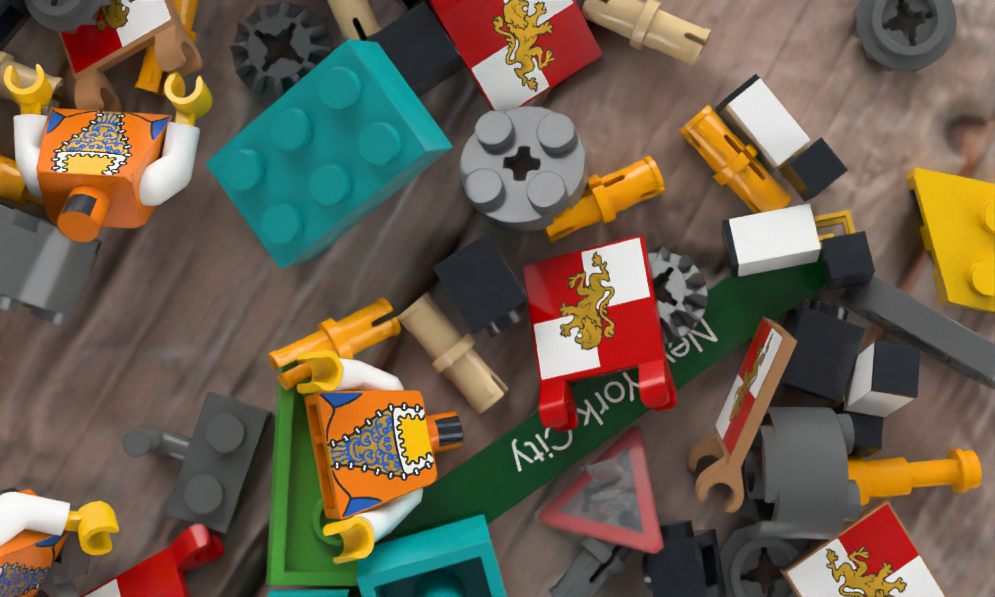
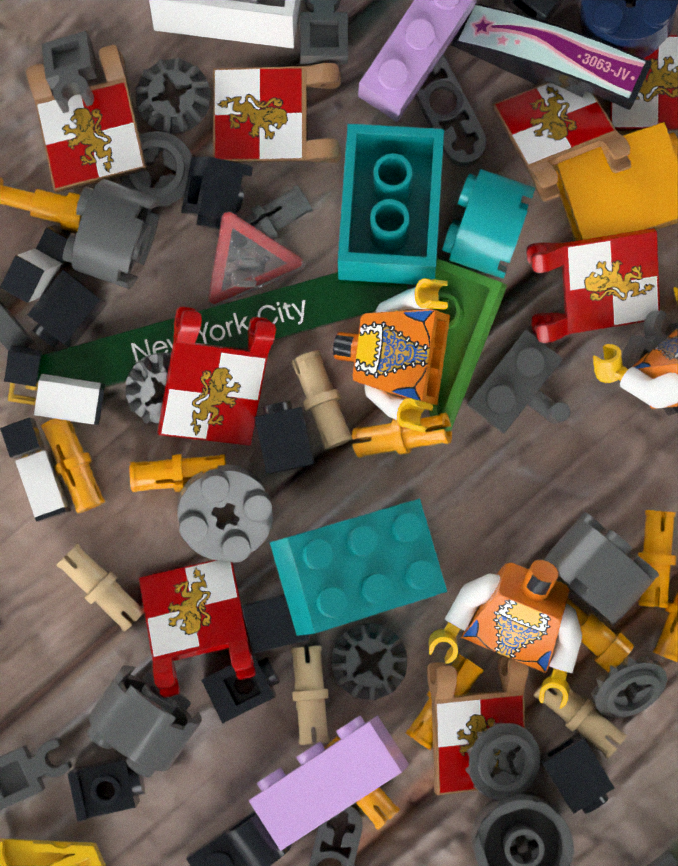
camera: 145 degrees left, 0 degrees up
(742, 413) = (135, 286): flag -> none

